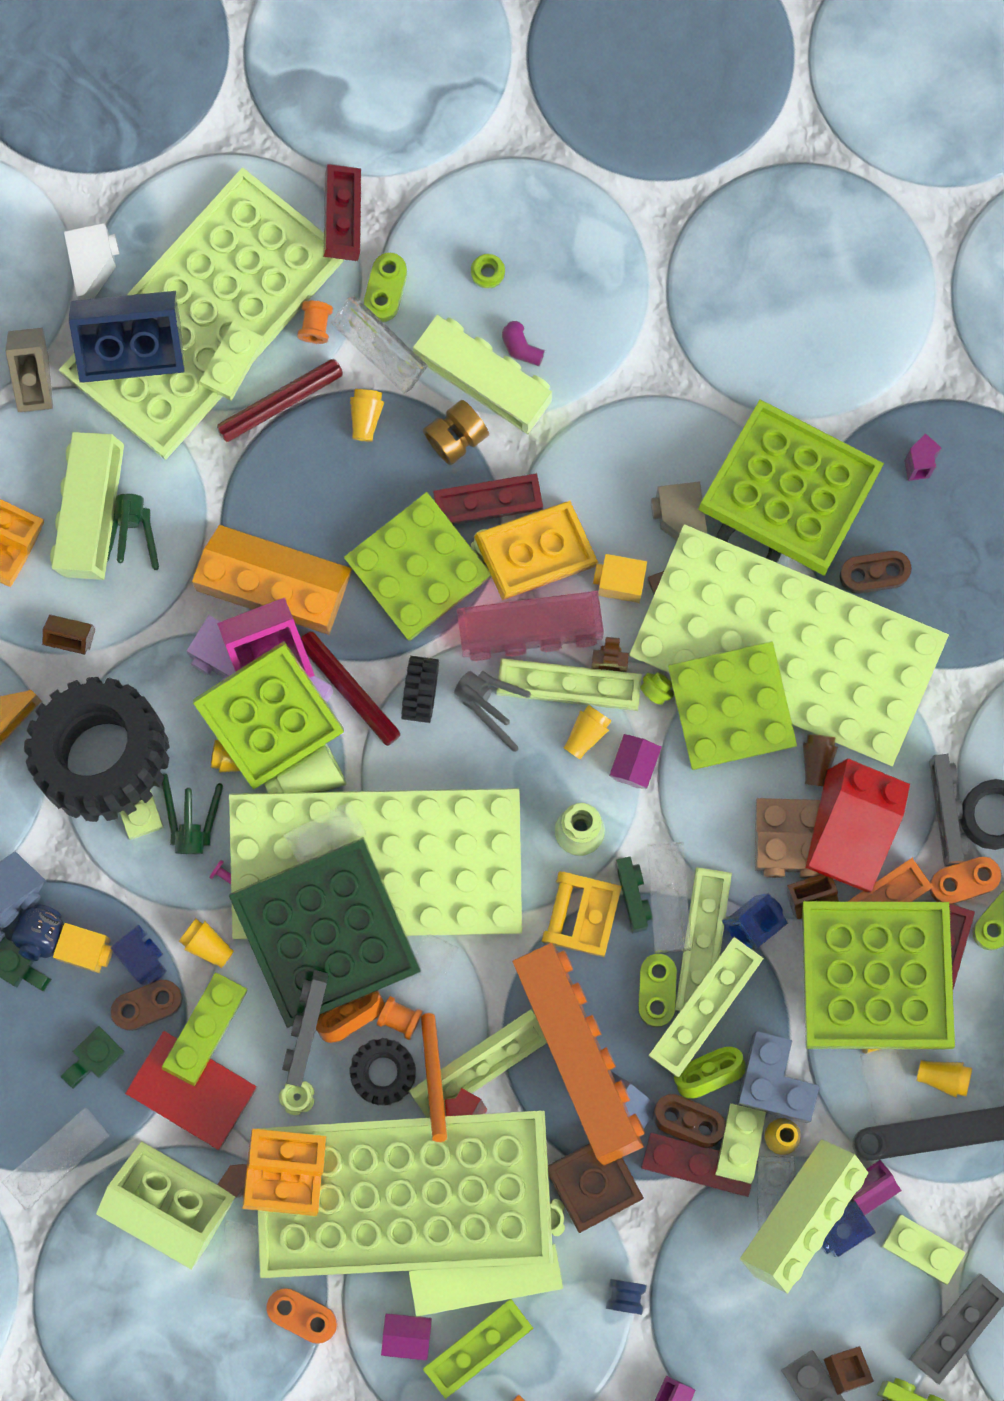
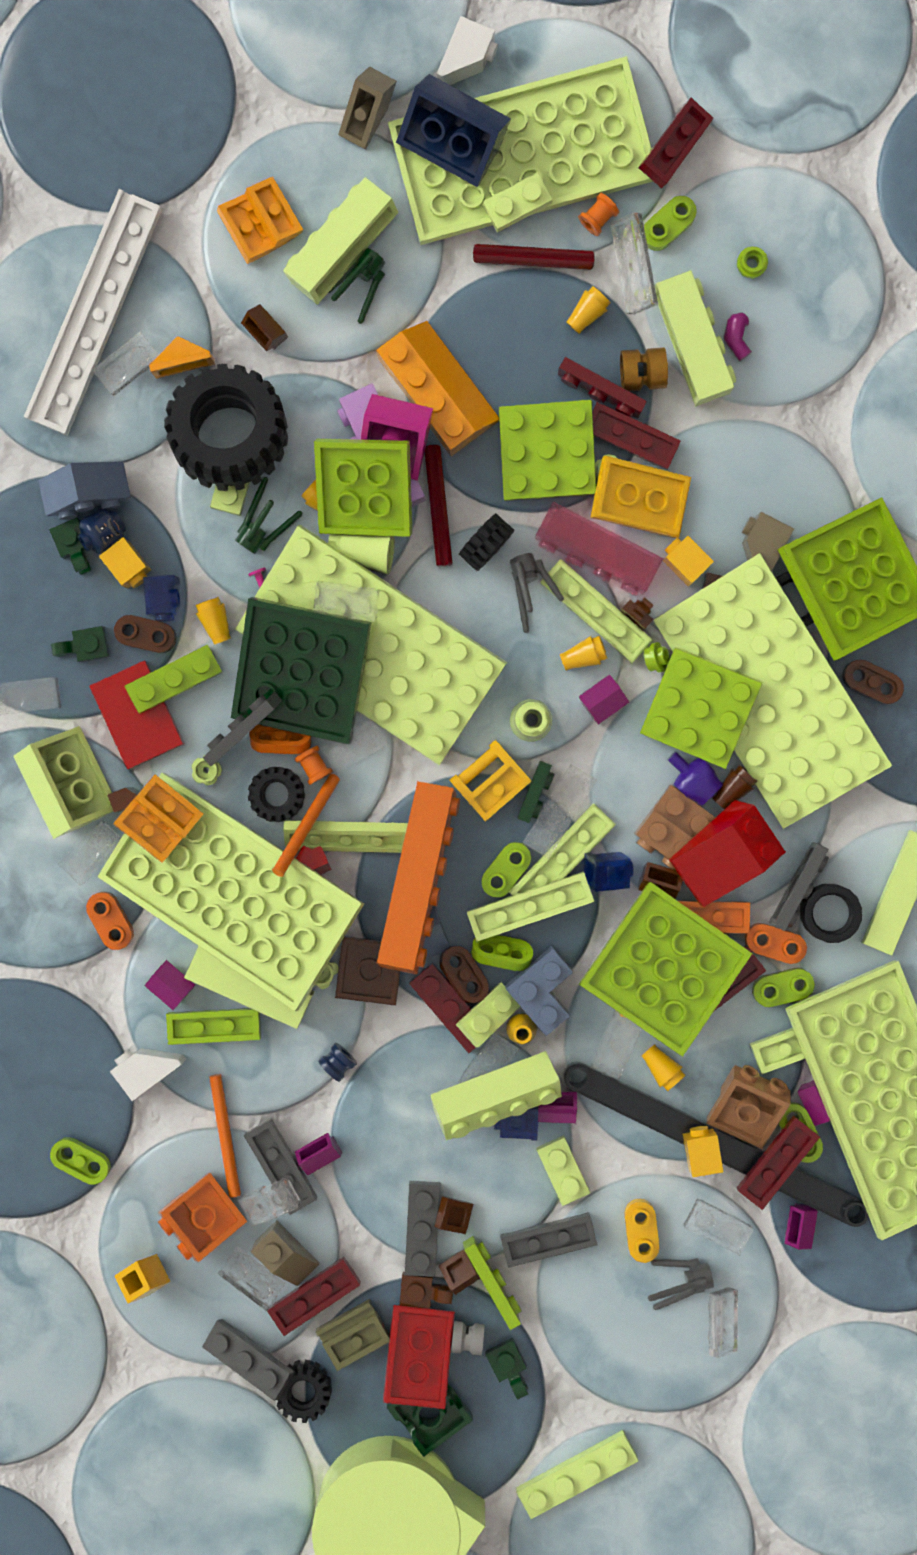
camera: 30 degrees right, 10 degrees up
(428, 476) = (600, 388): none -> dark red plate
(776, 777) = (696, 780): none -> dark purple piece

